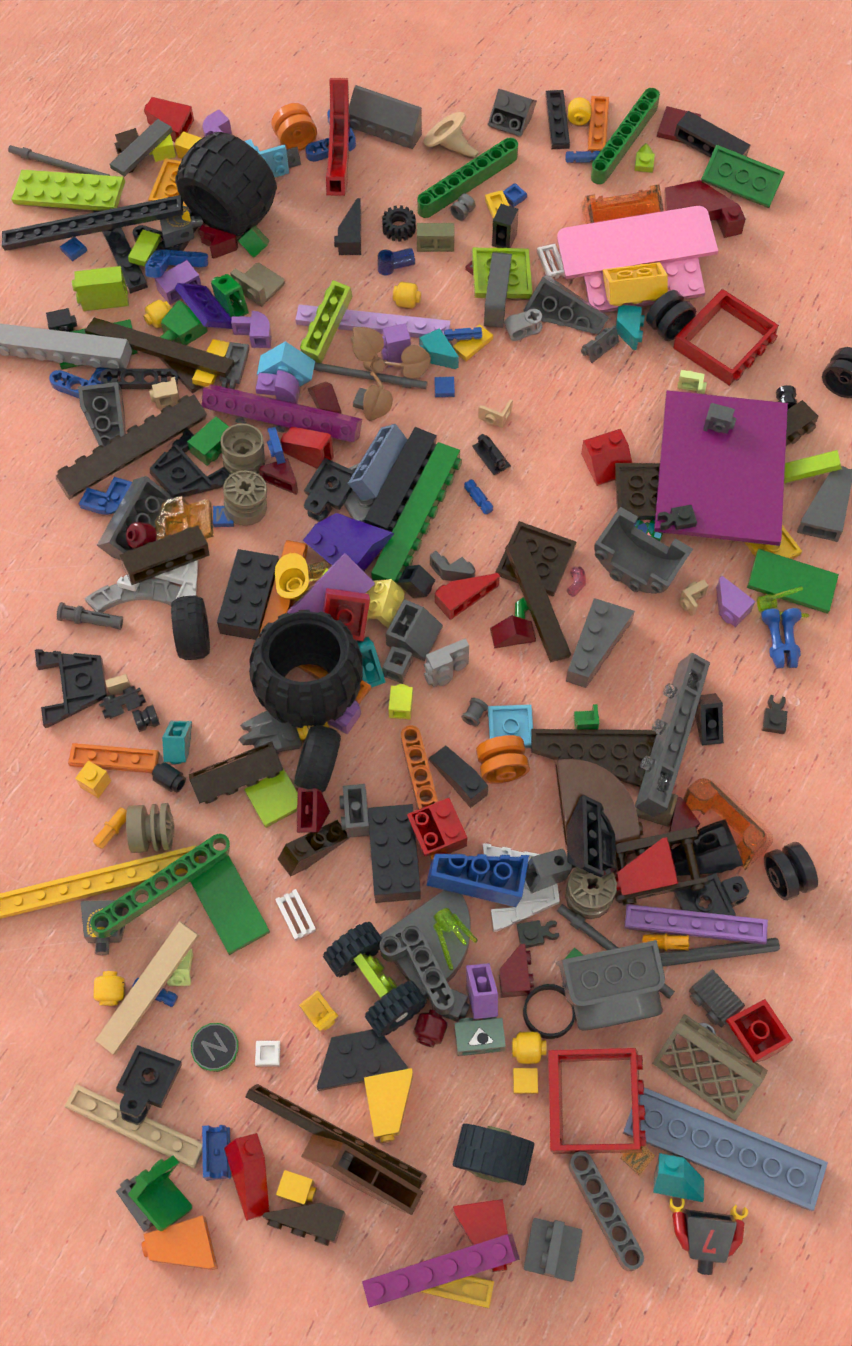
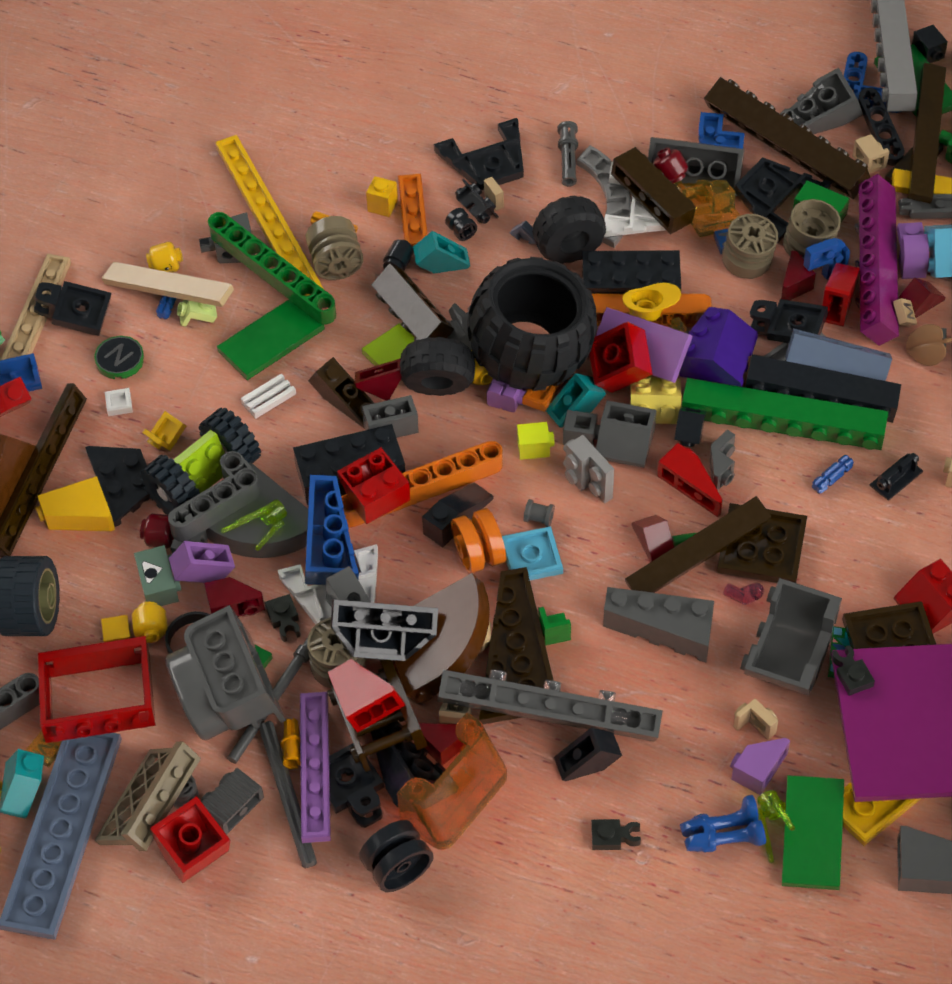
camera: 80 degrees right, 10 degrees down
(169, 667) = (523, 231): none -> sand blue tile
(341, 409) = (904, 312): none -> tan tile

